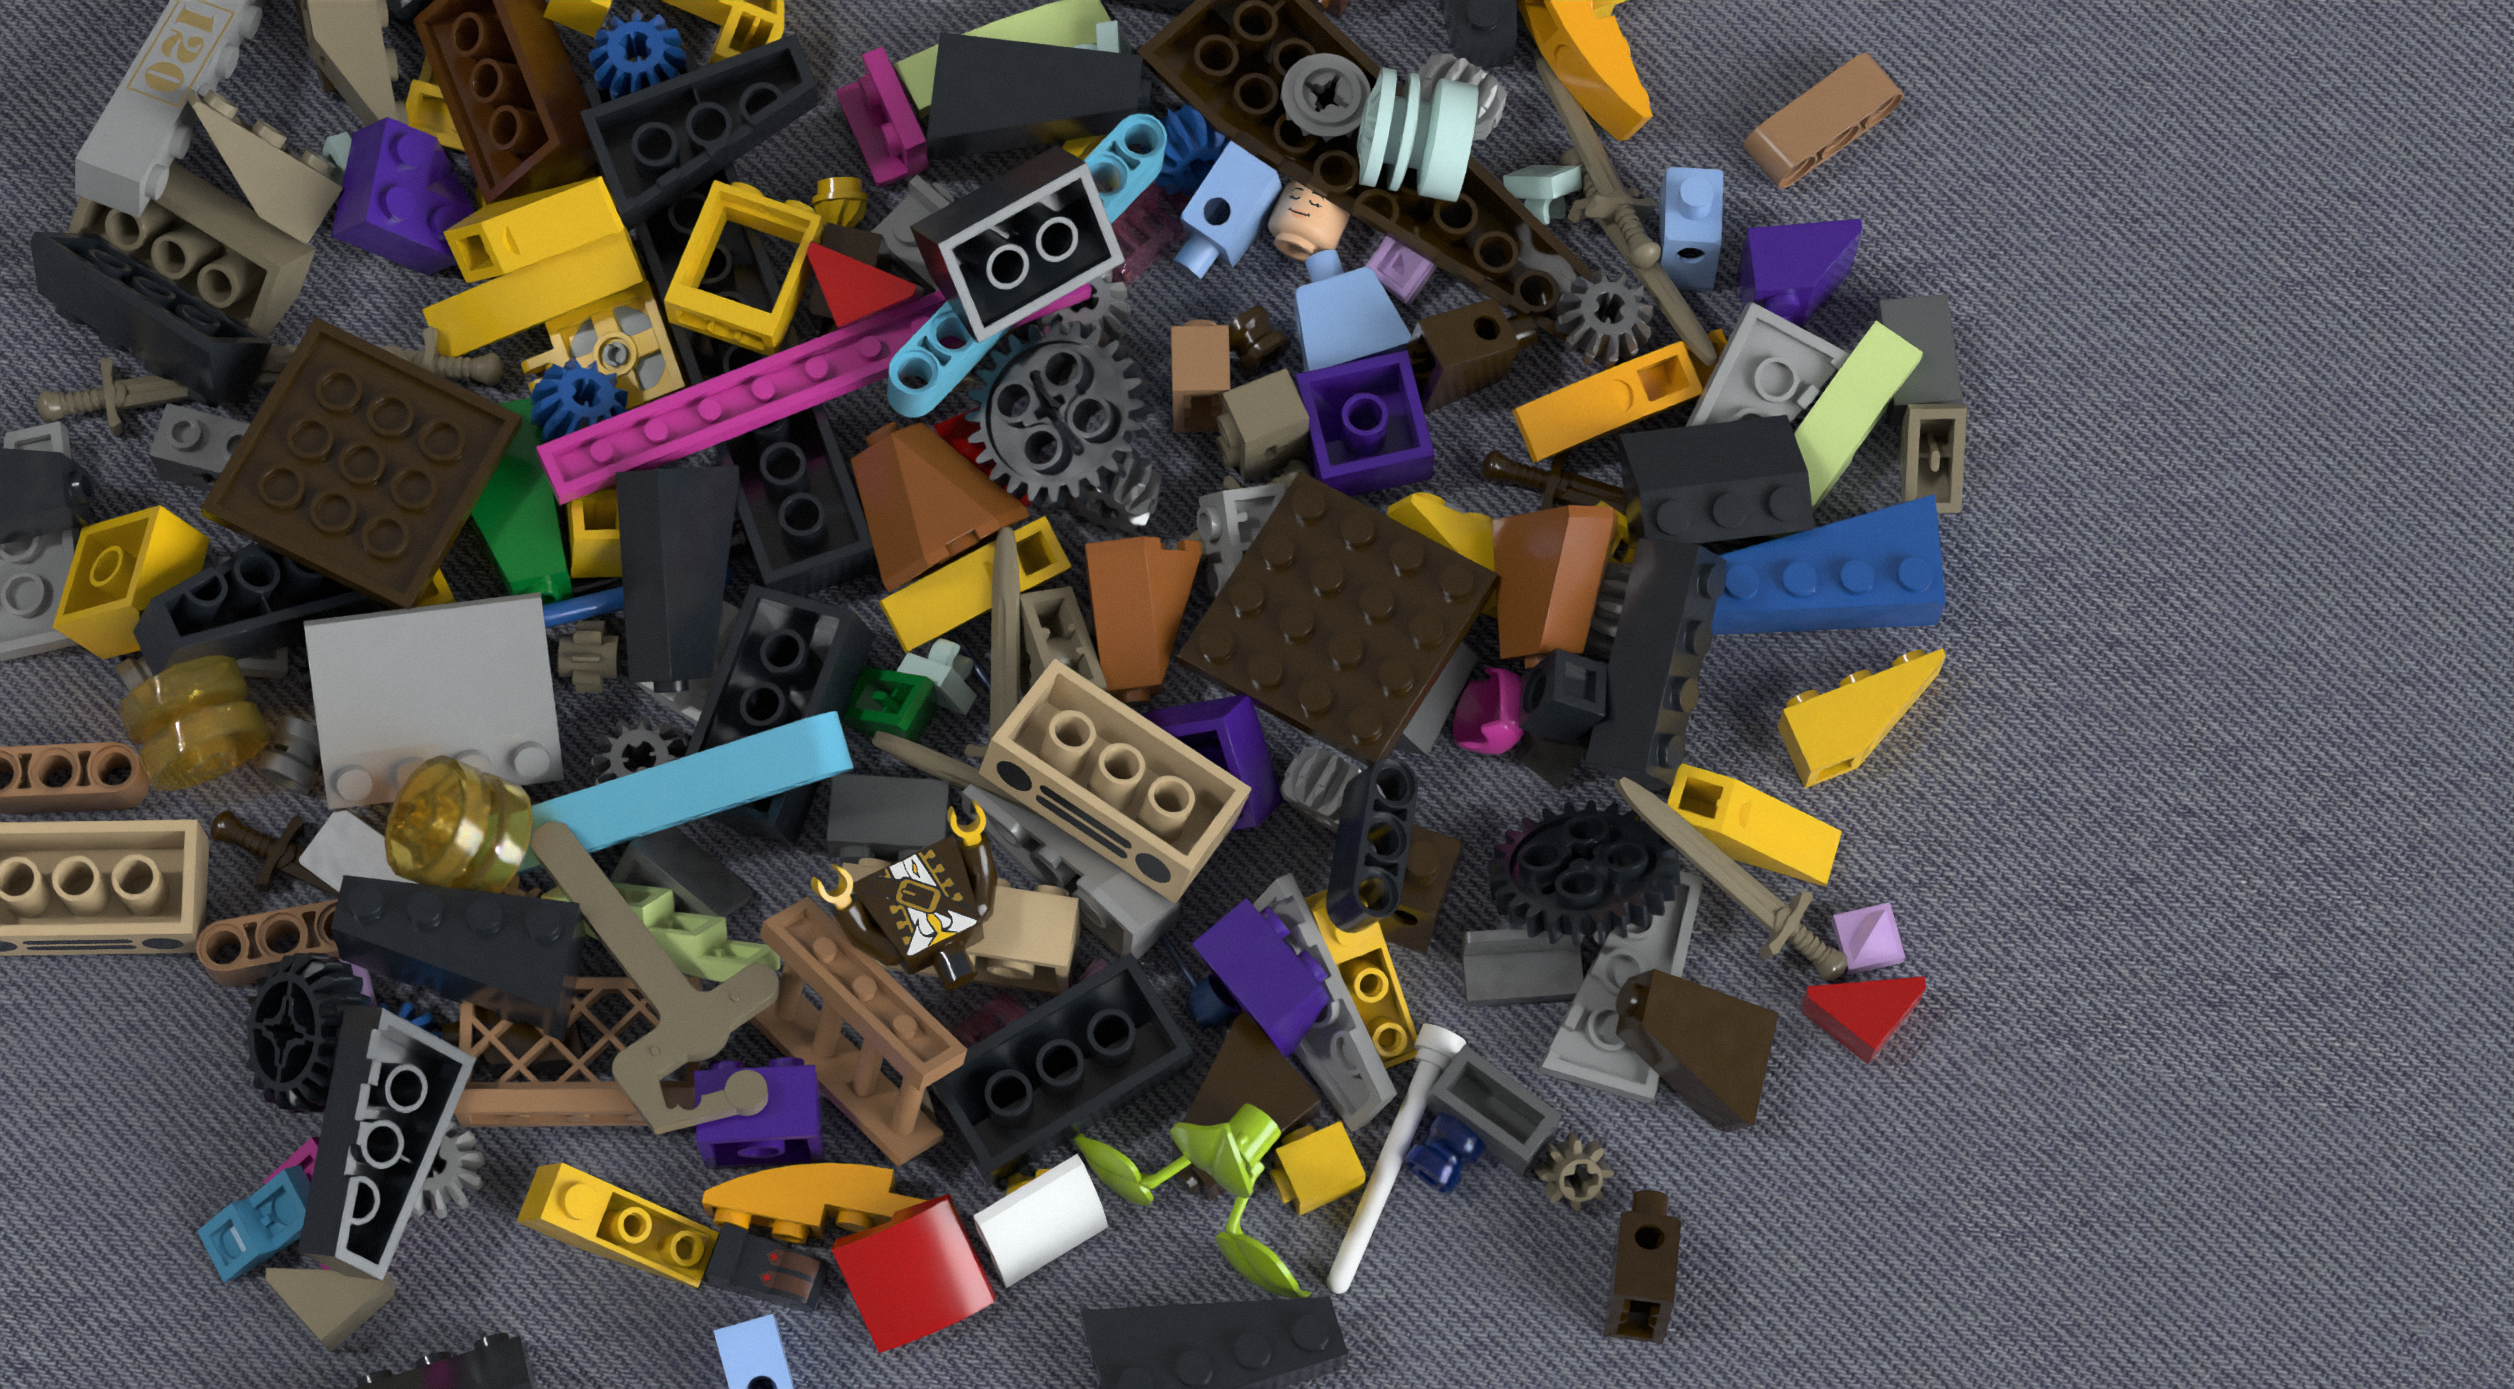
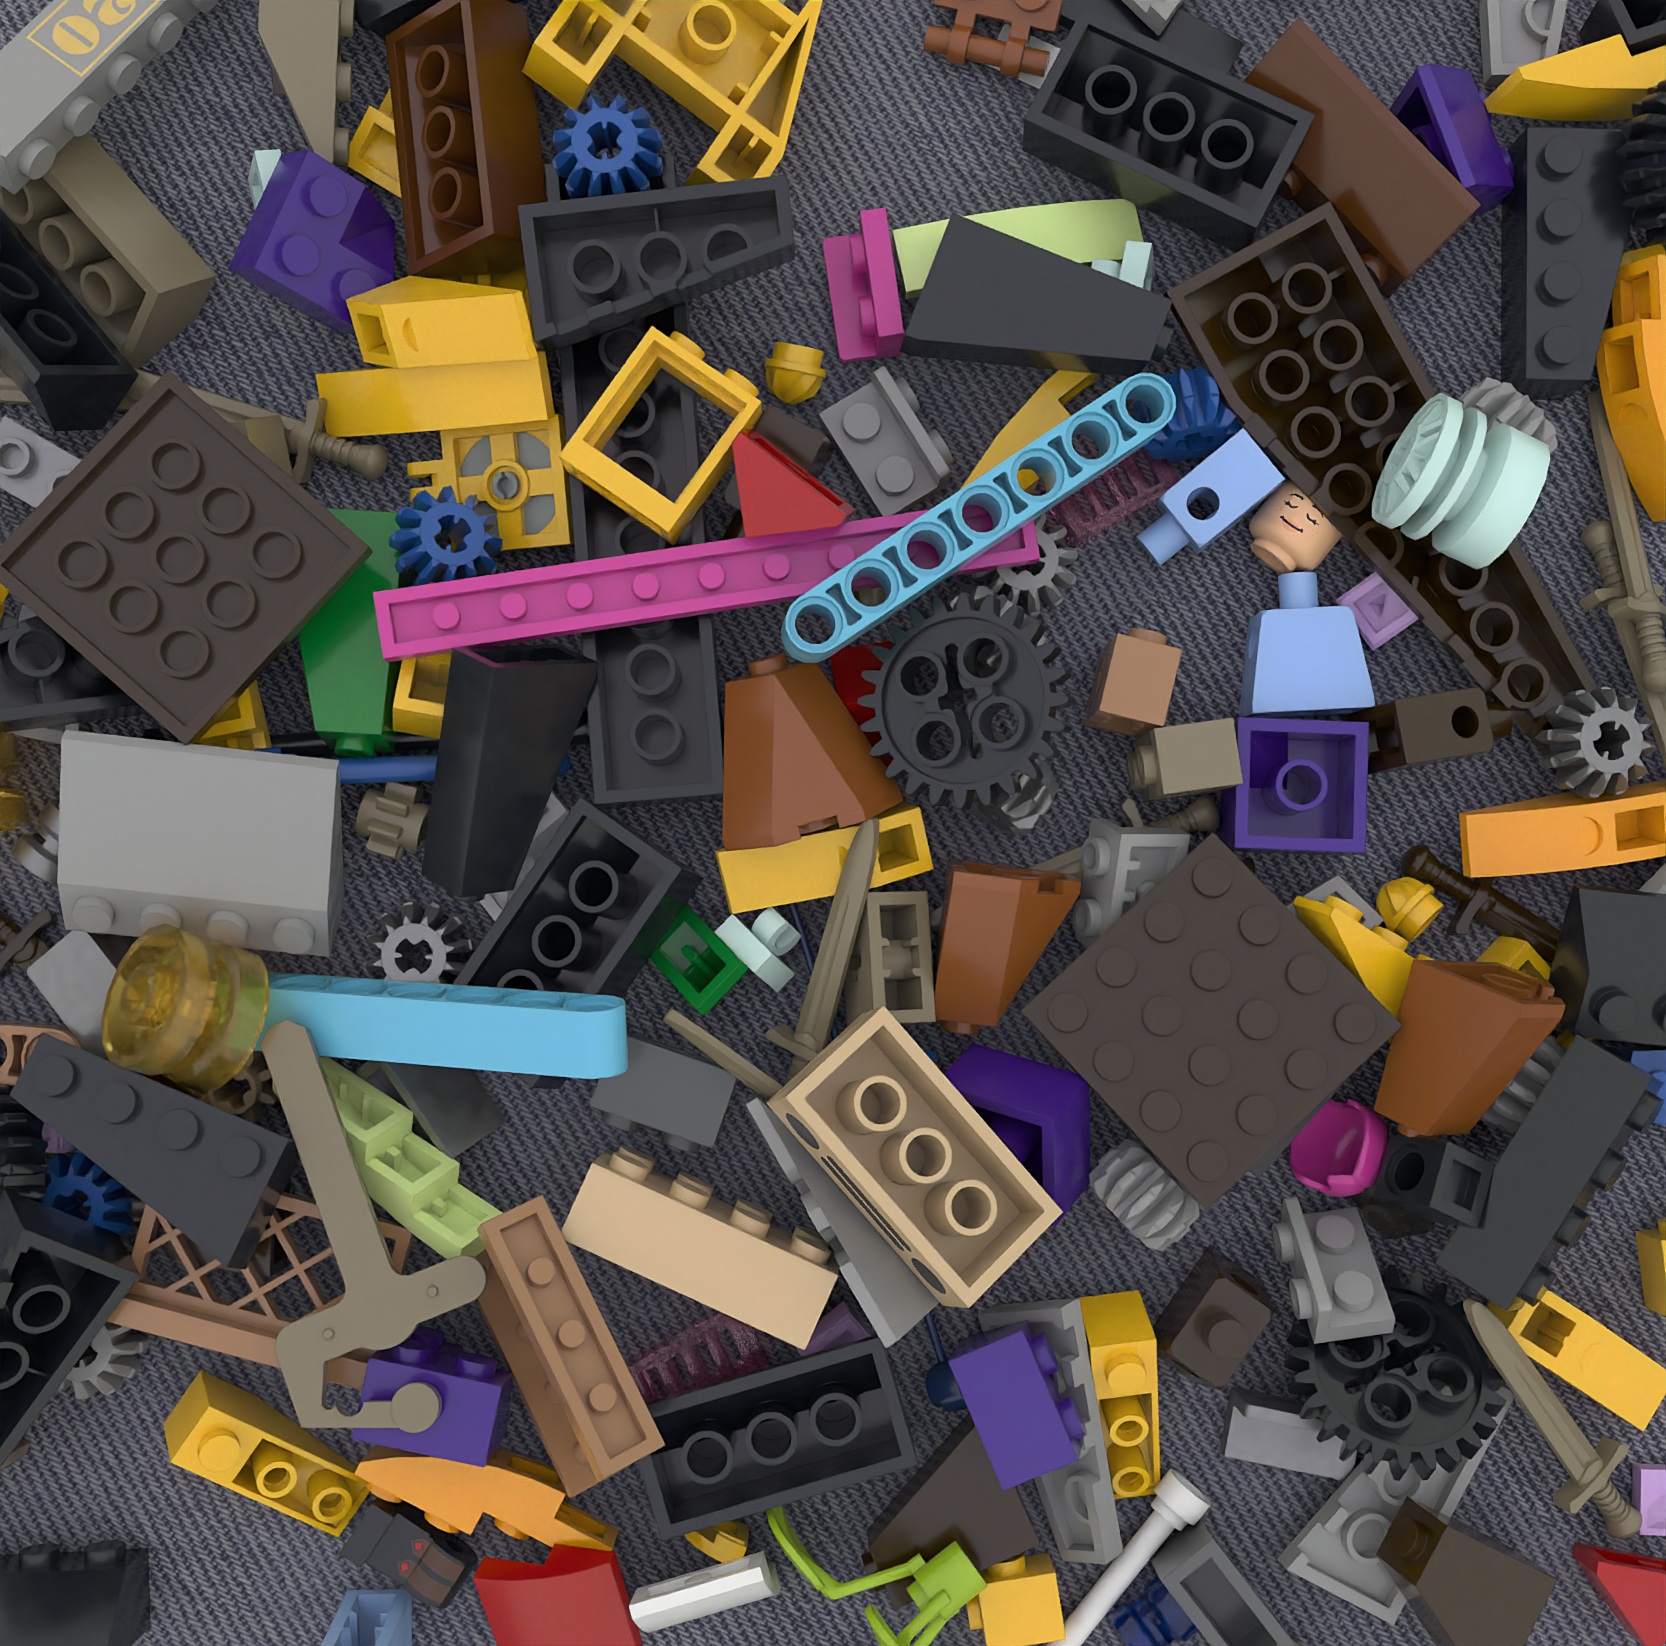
camera: 15 degrees right, 15 degrees up
(278, 182) = (175, 180): dark tan slope -> none
(922, 905) = (659, 1256): torso -> none
(1018, 242) = (974, 501): black slope -> none
(1256, 340) = (1202, 651): dark brown wheel -> none
(1317, 74) = (1391, 401): light grey gear -> none
(1389, 827) = (1177, 1305): black beam -> none
(1496, 498) = (1407, 907): none -> yellow plate
(1509, 811) = (1333, 1273): none -> light grey bracket
(1544, 188) = (1564, 560): light aqua tile -> none

